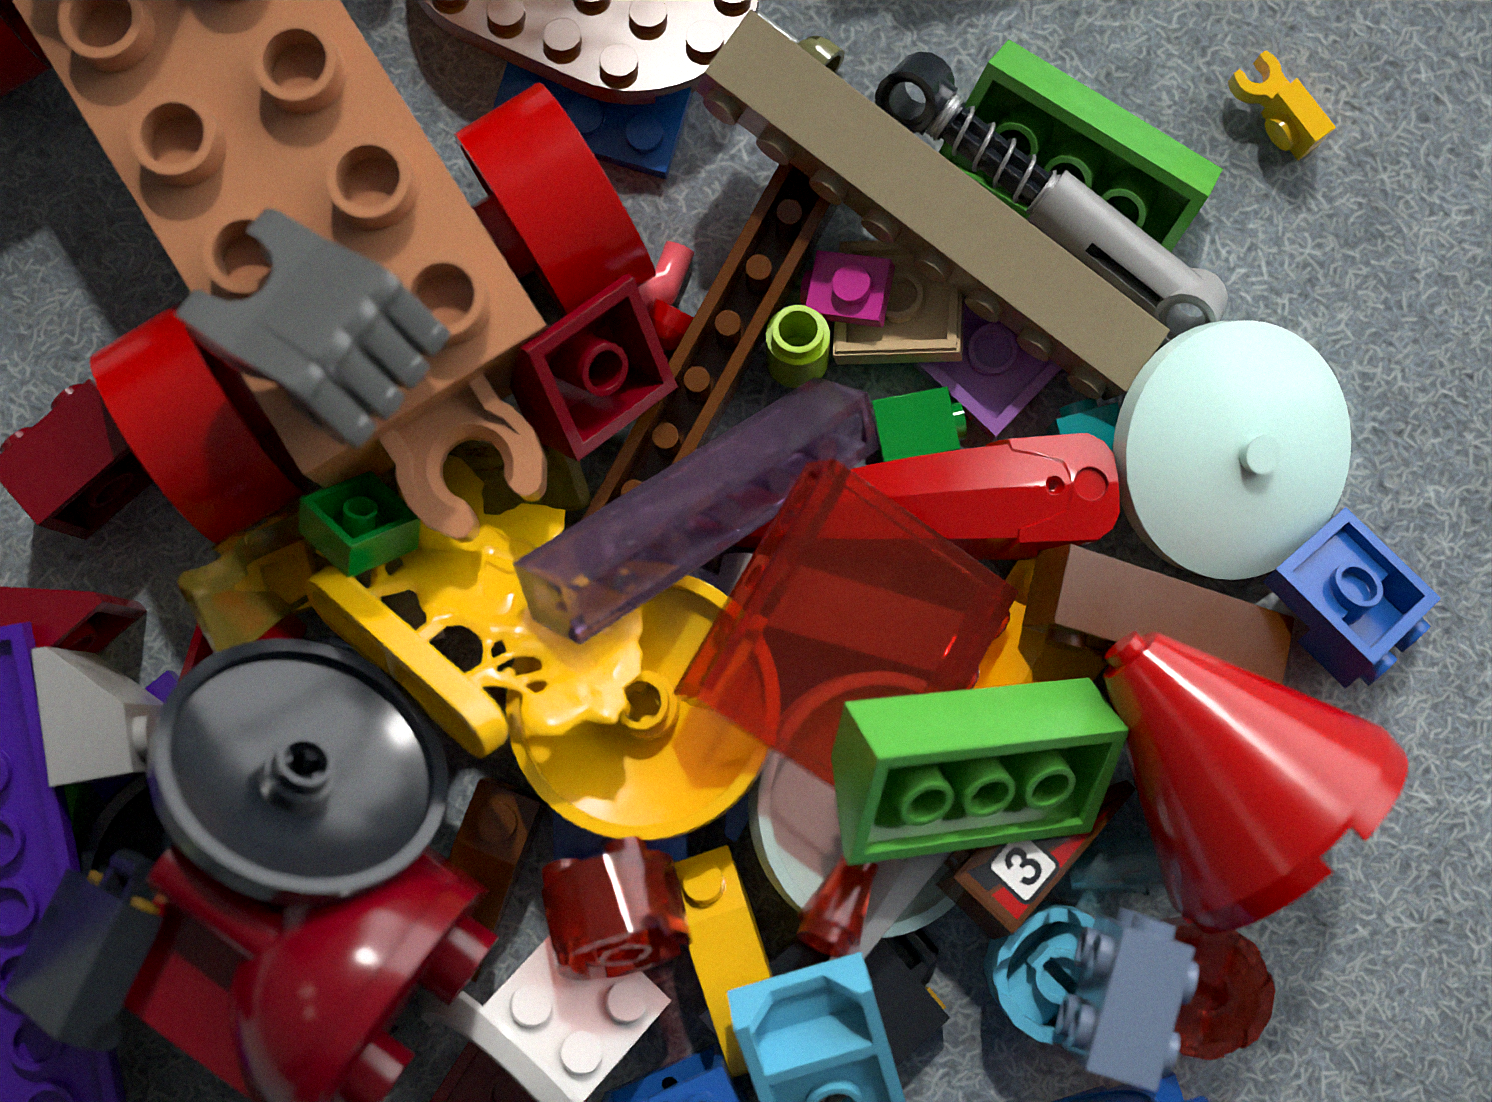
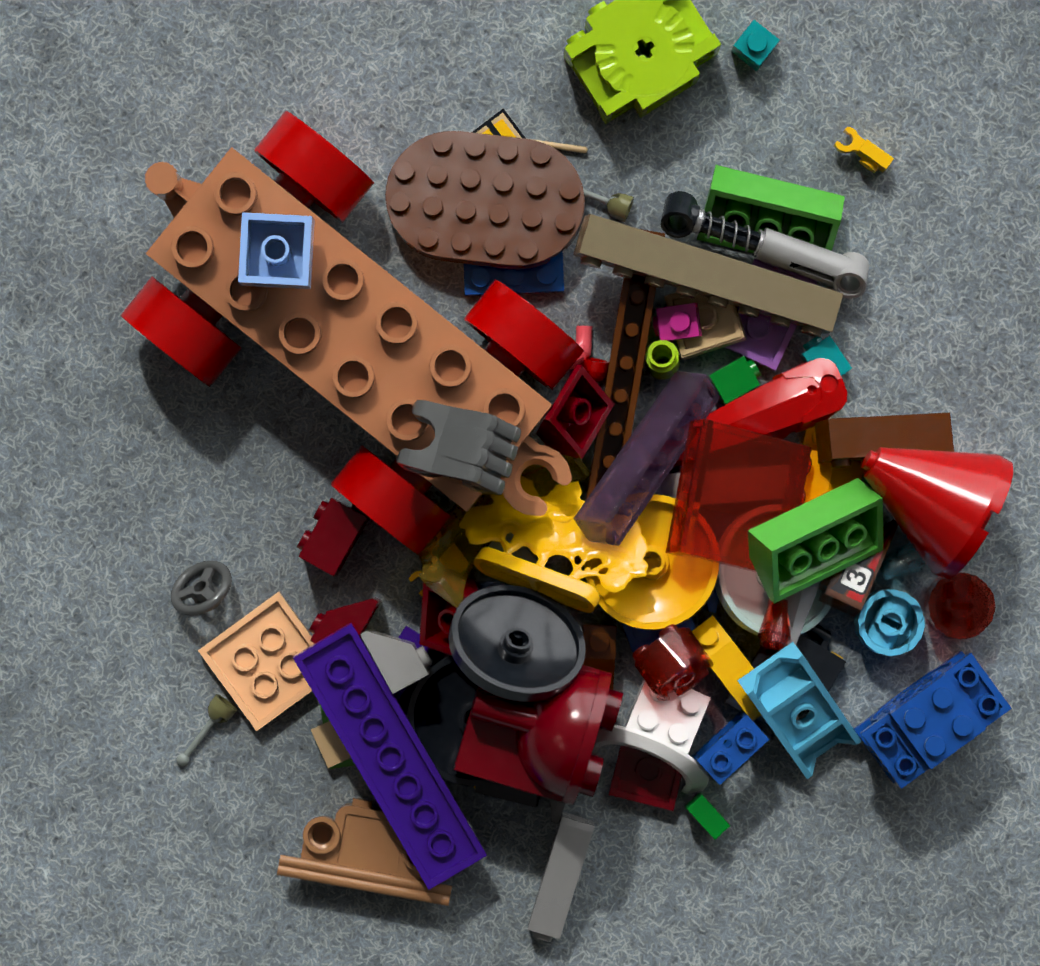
camera: 20 degrees left, 5 degrees up
(88, 952) = (445, 757): black piece -> none
(359, 524) = (488, 523): green piece -> none
(1127, 998) = (920, 619): sand blue brick -> none
(1232, 448) = (894, 339): light aqua dish -> none
(1353, 599) = (975, 393): blue plate -> none

